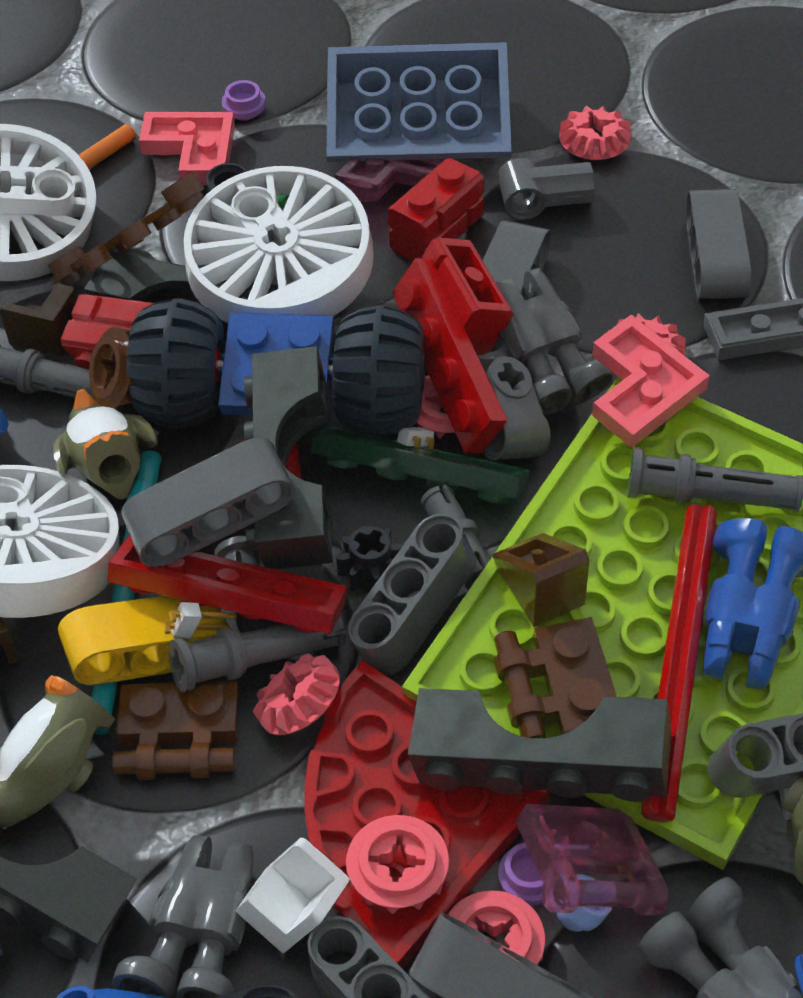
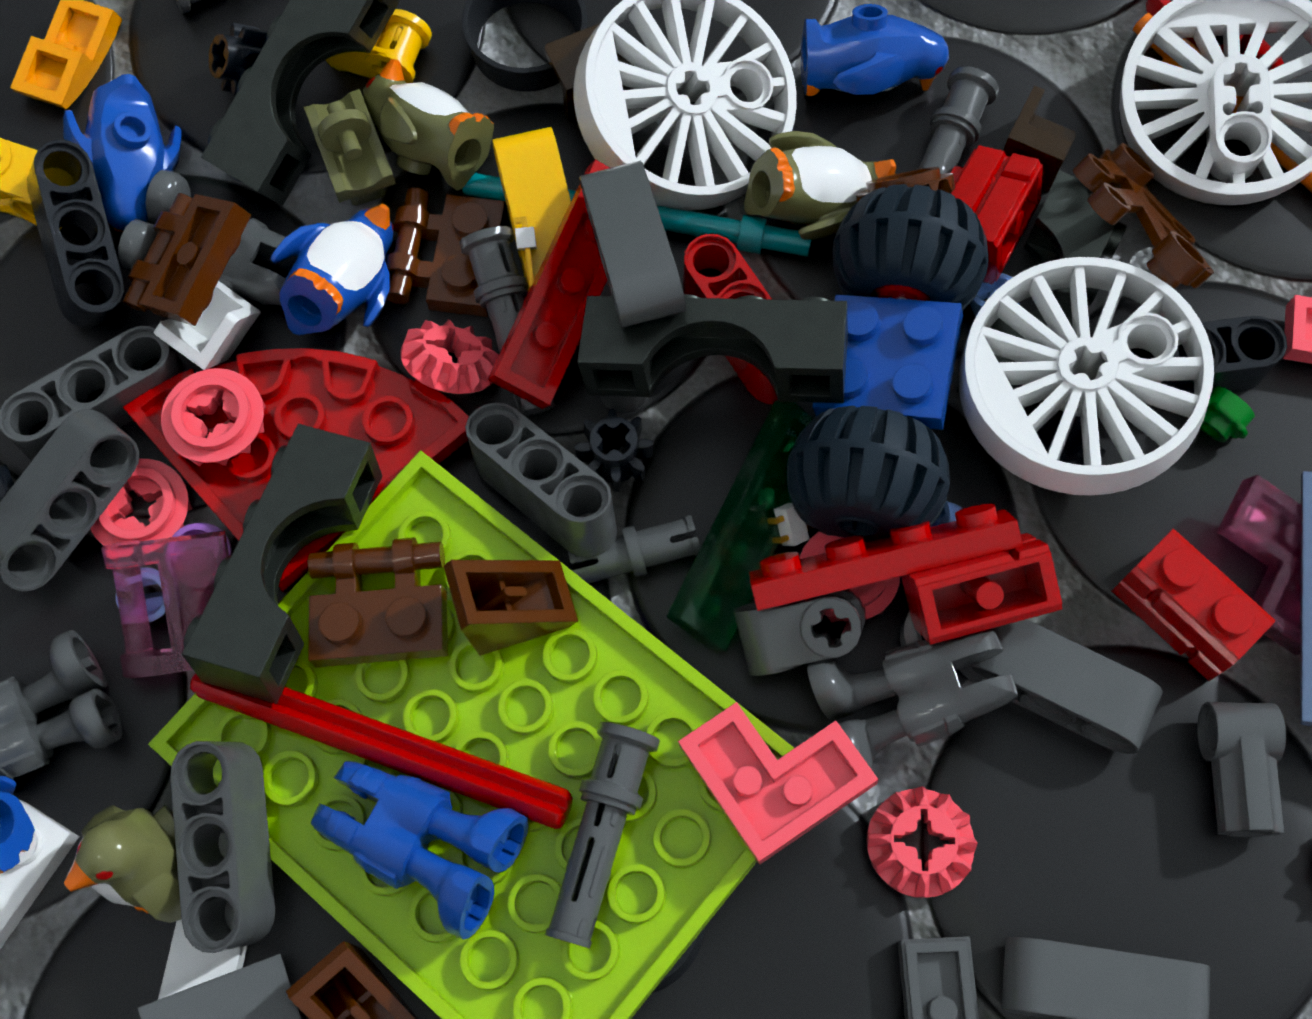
camera: 95 degrees right, 20 degrees up
(70, 816) = (350, 149): none -> olive hips
(220, 793) = (336, 270): none -> animal
(239, 890) = (186, 257): none -> reddish brown plate

